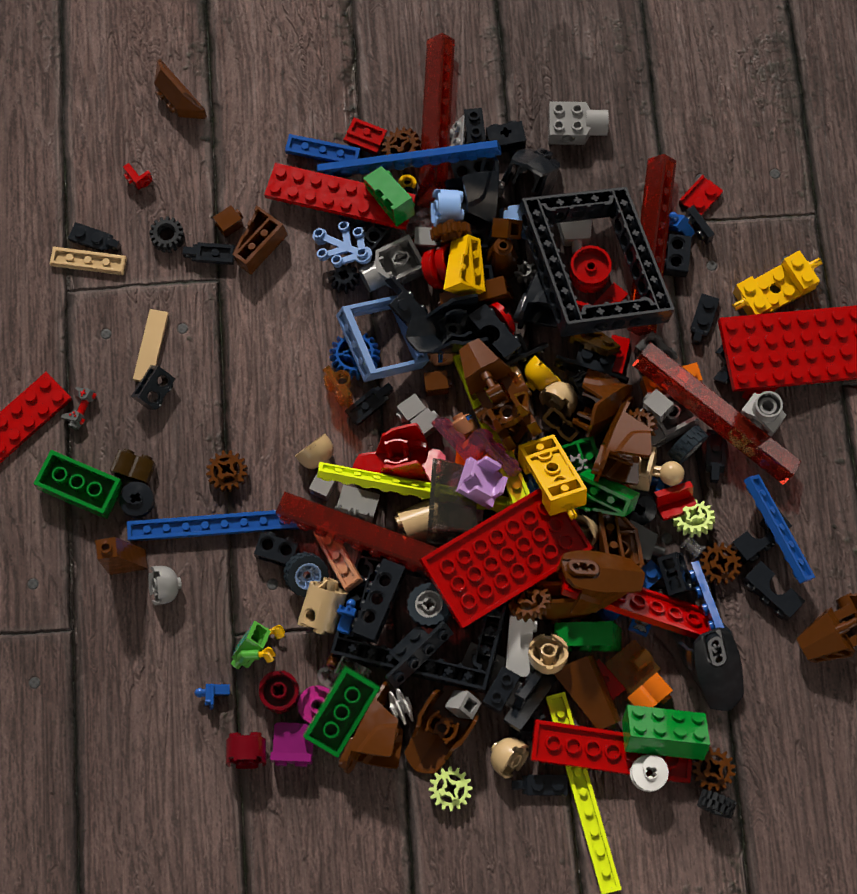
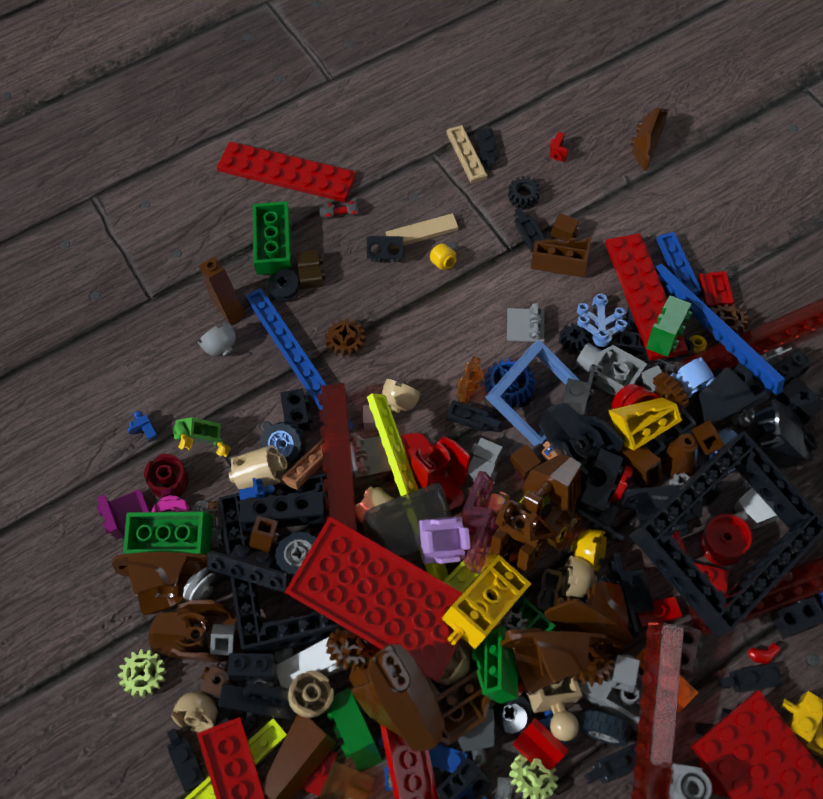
camera: 65 degrees right, 10 degrees down
(193, 342) = (443, 256): none -> yellow head
(245, 750) = (100, 475): dark red brick -> none
(304, 310) = (525, 324): none -> light grey hinge
(395, 625) = (264, 534): none -> reddish brown brick
(490, 728) = (211, 687): none -> reddish brown brick
(597, 342) = (655, 583): dark brown wing -> none
(691, 298) = (764, 656): none -> red arm

